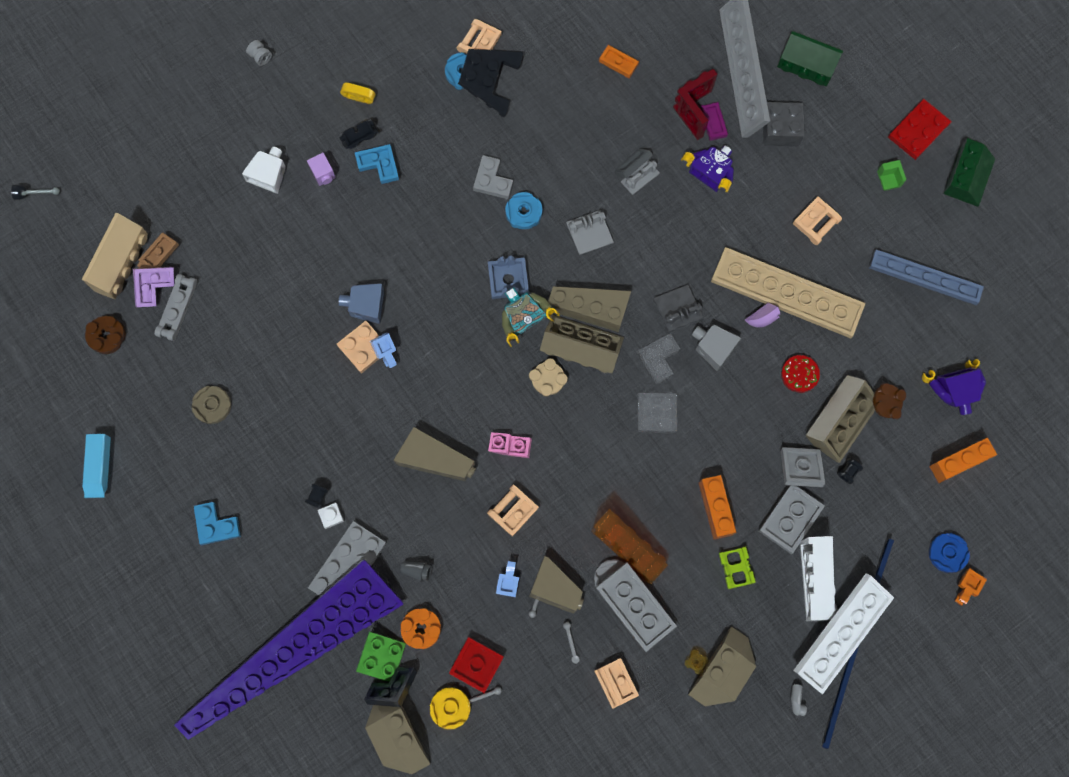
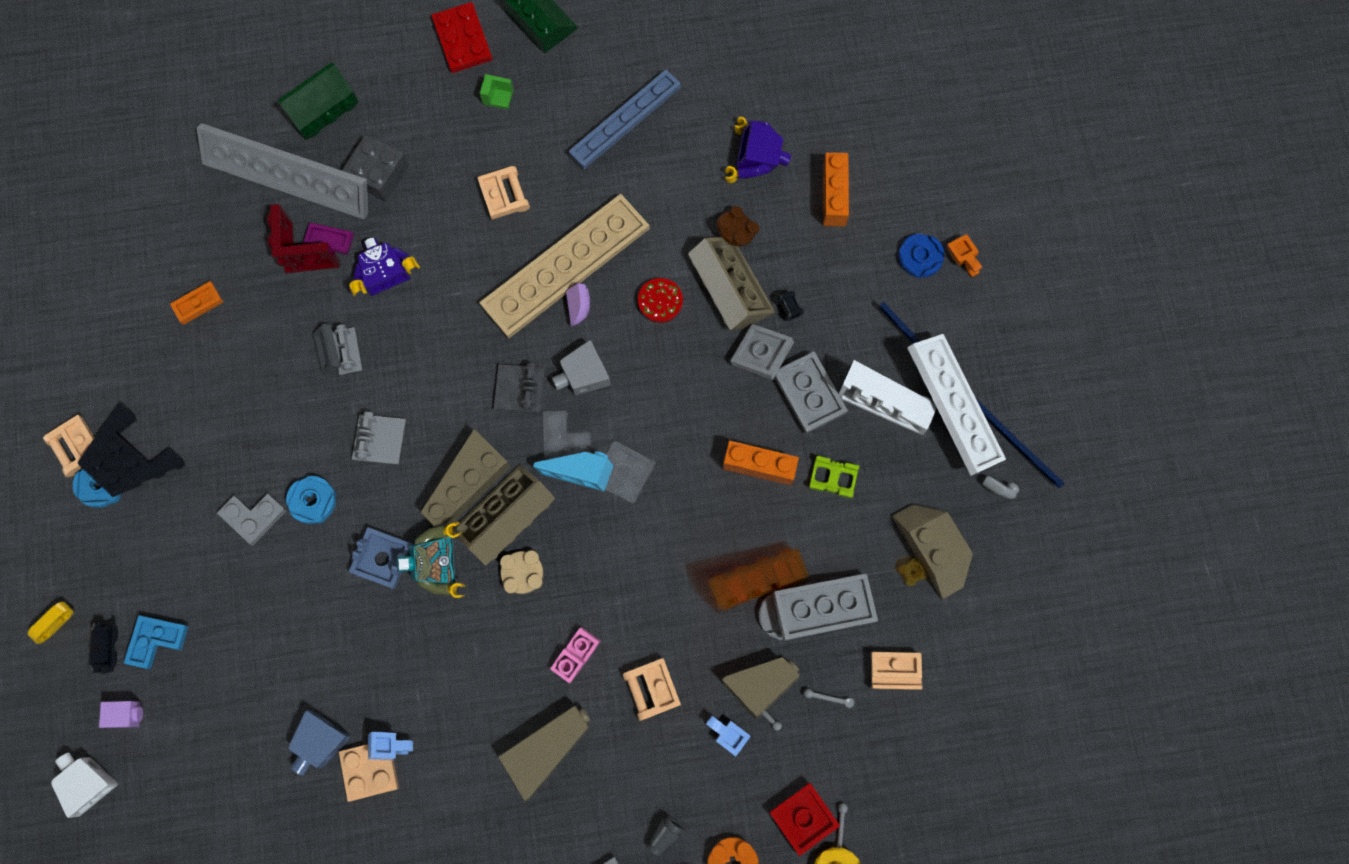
camera: 60 degrees left, 0 degrees up
(642, 379) = (580, 468): none -> medium azure slope

